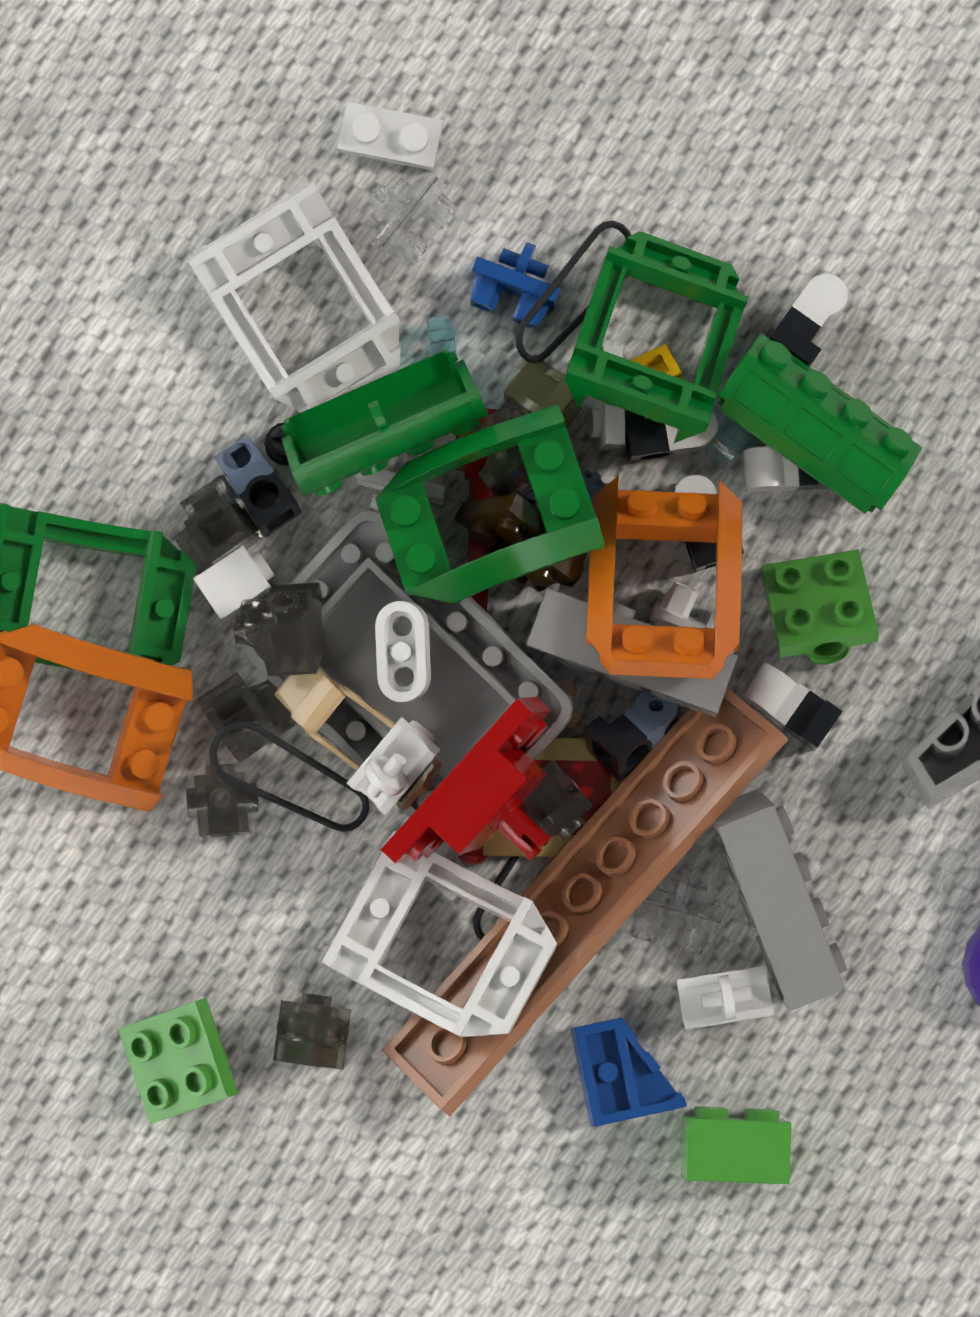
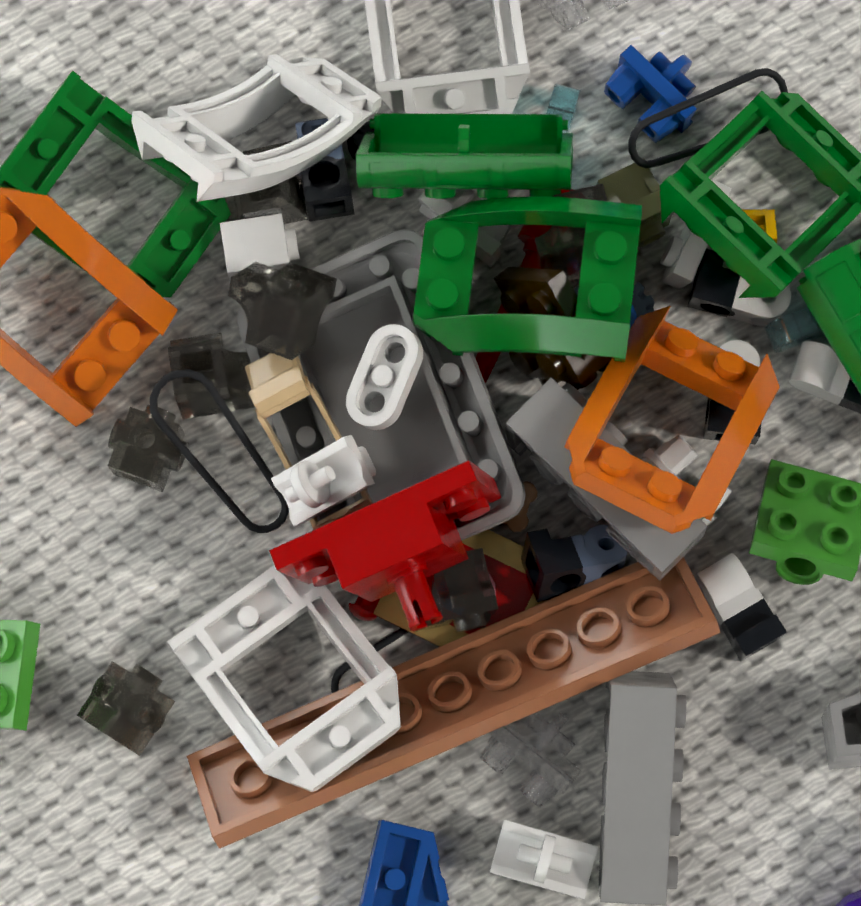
camera: 30 degrees right, 5 degrees down
(130, 507) = (198, 132): none -> white wedge

